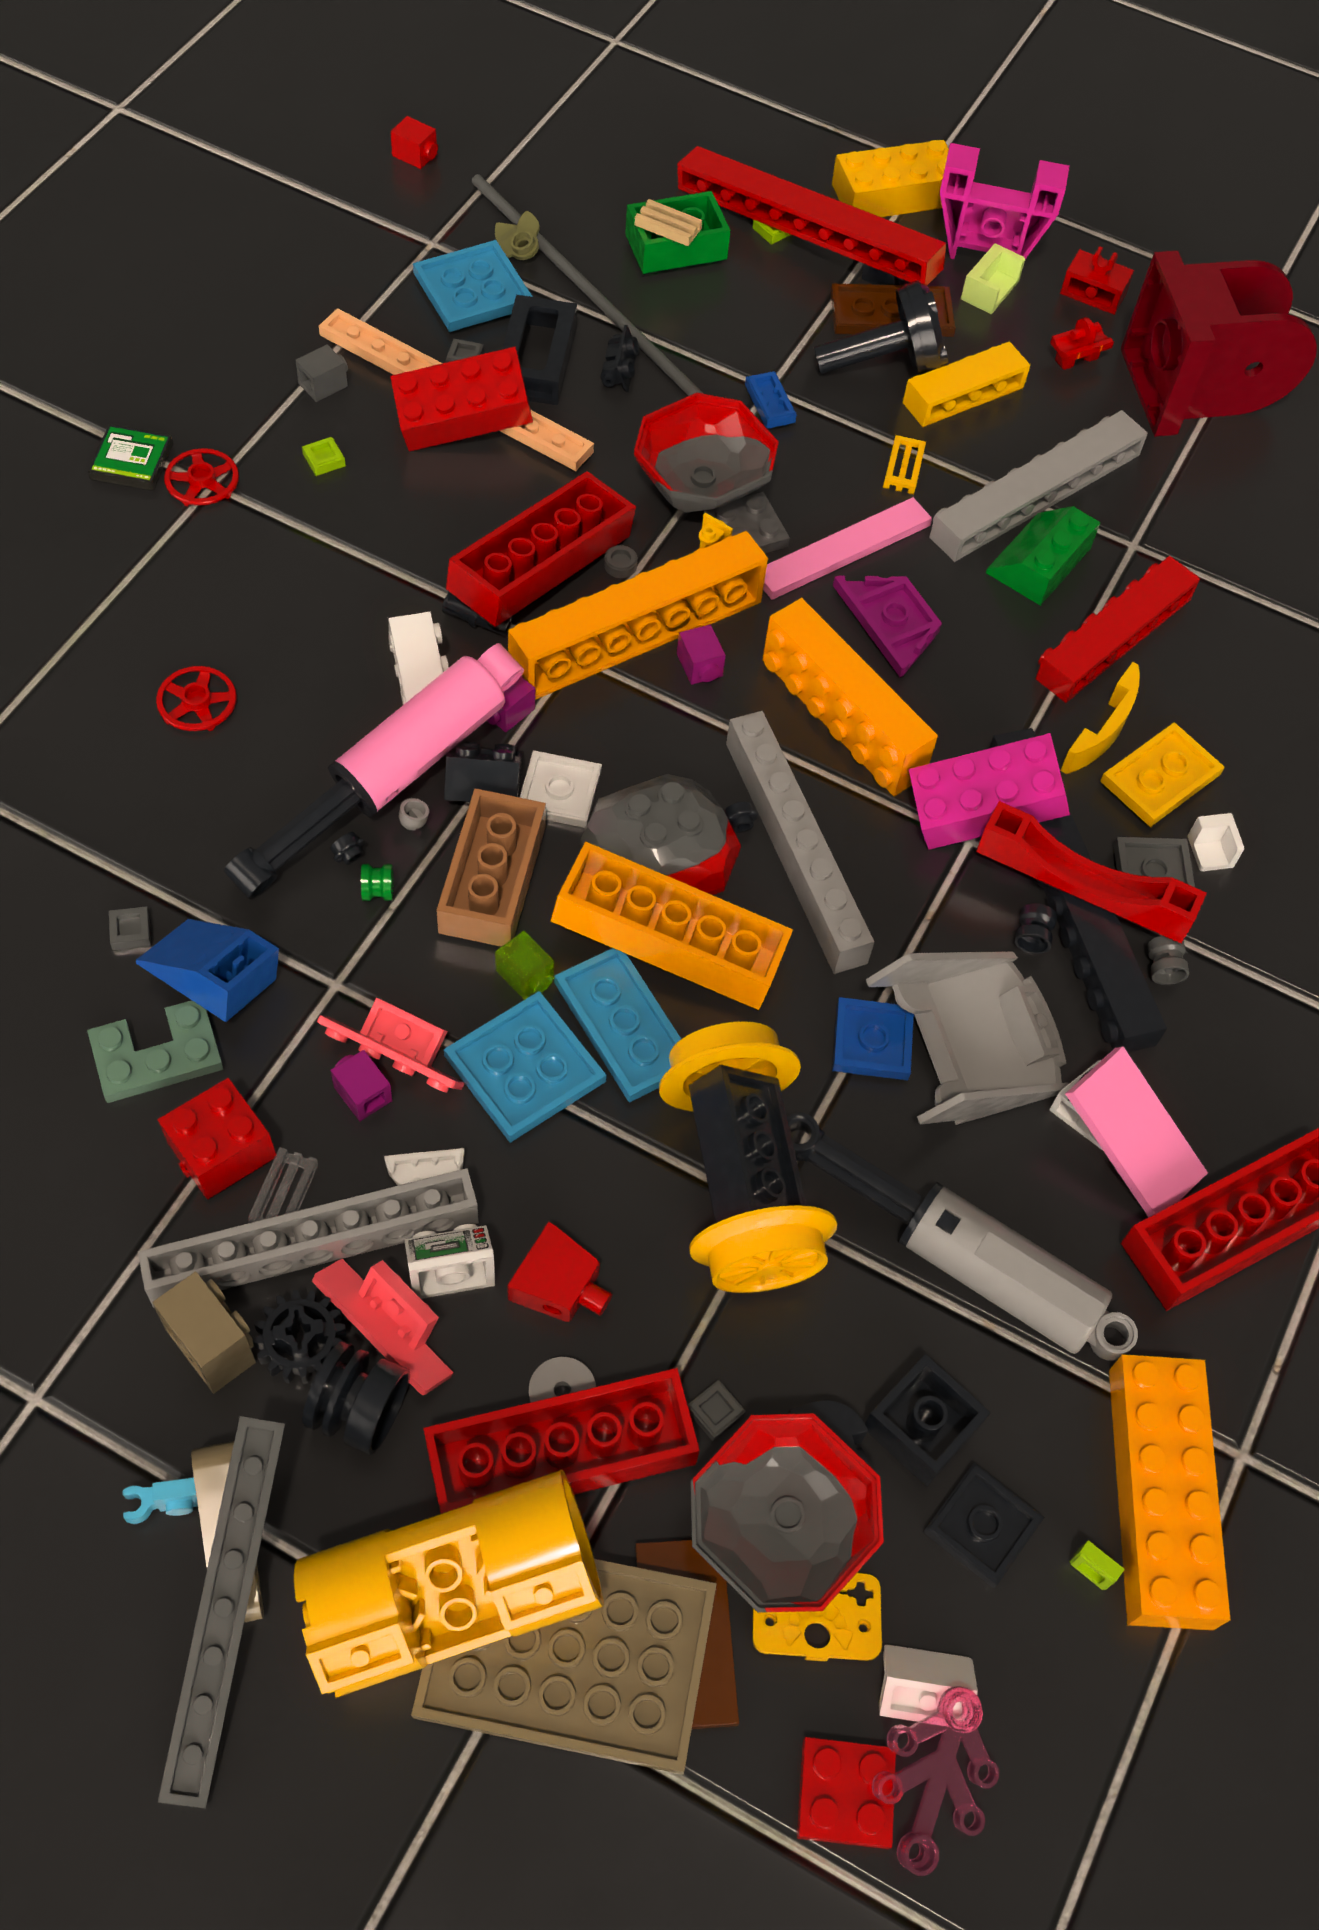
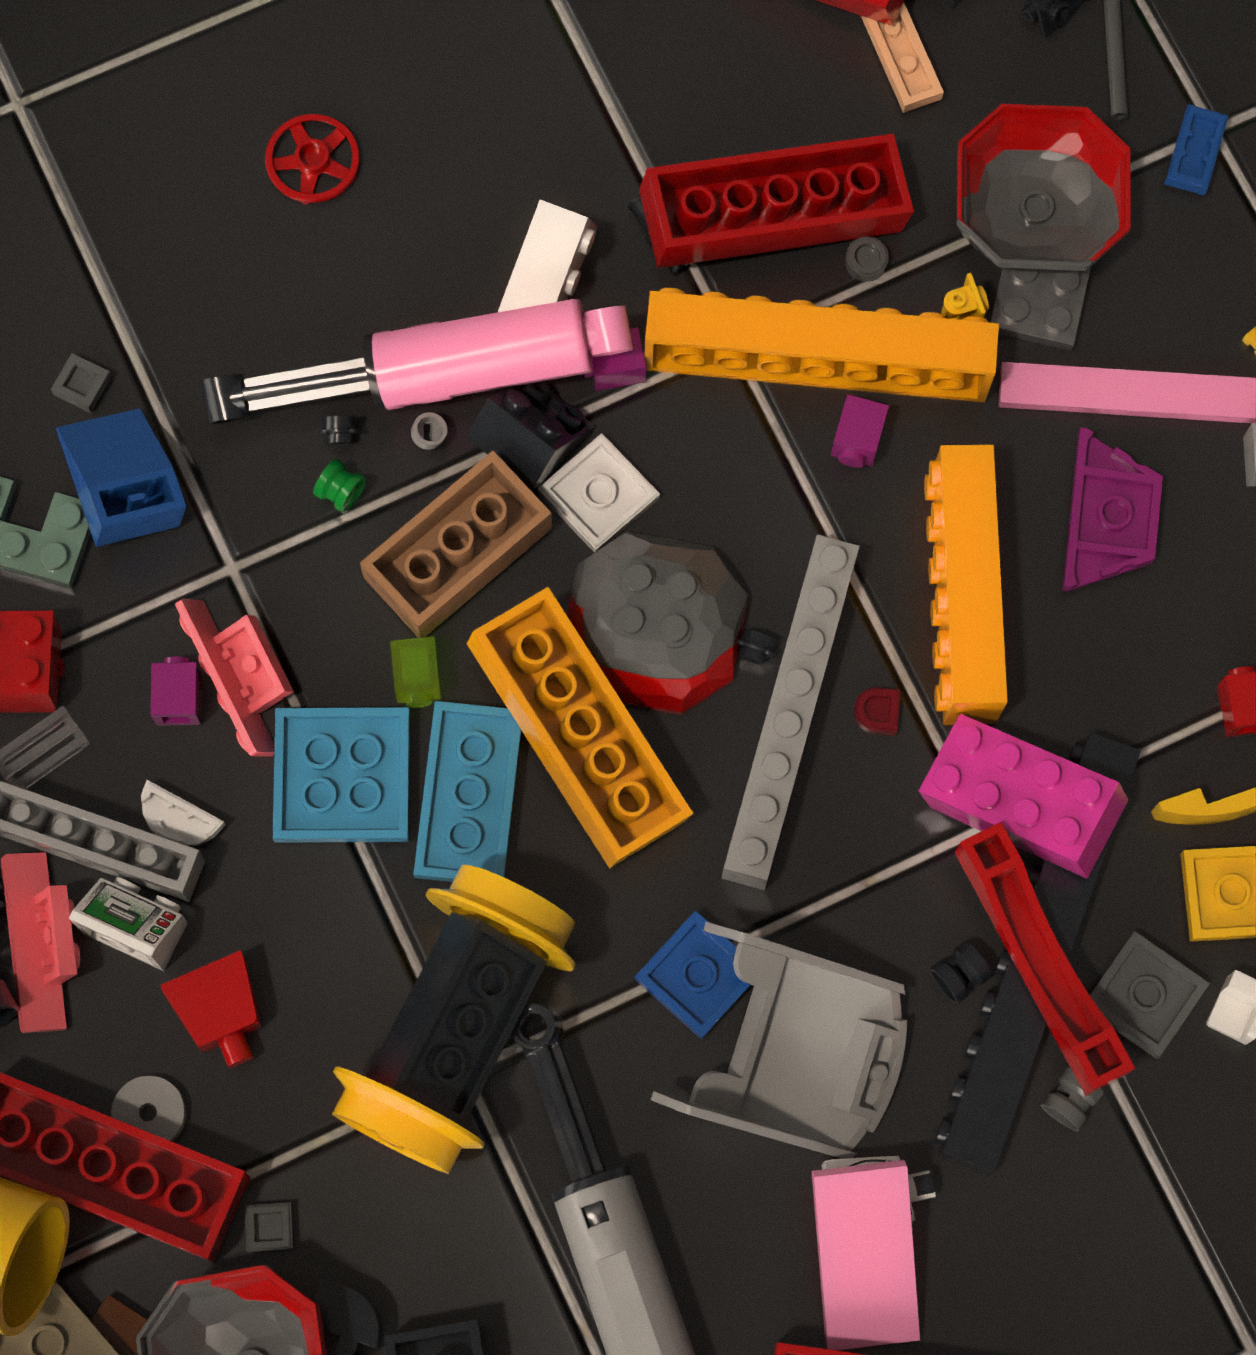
camera: 40 degrees right, 15 degrees up
(848, 811) = (878, 711): none -> dark red tile

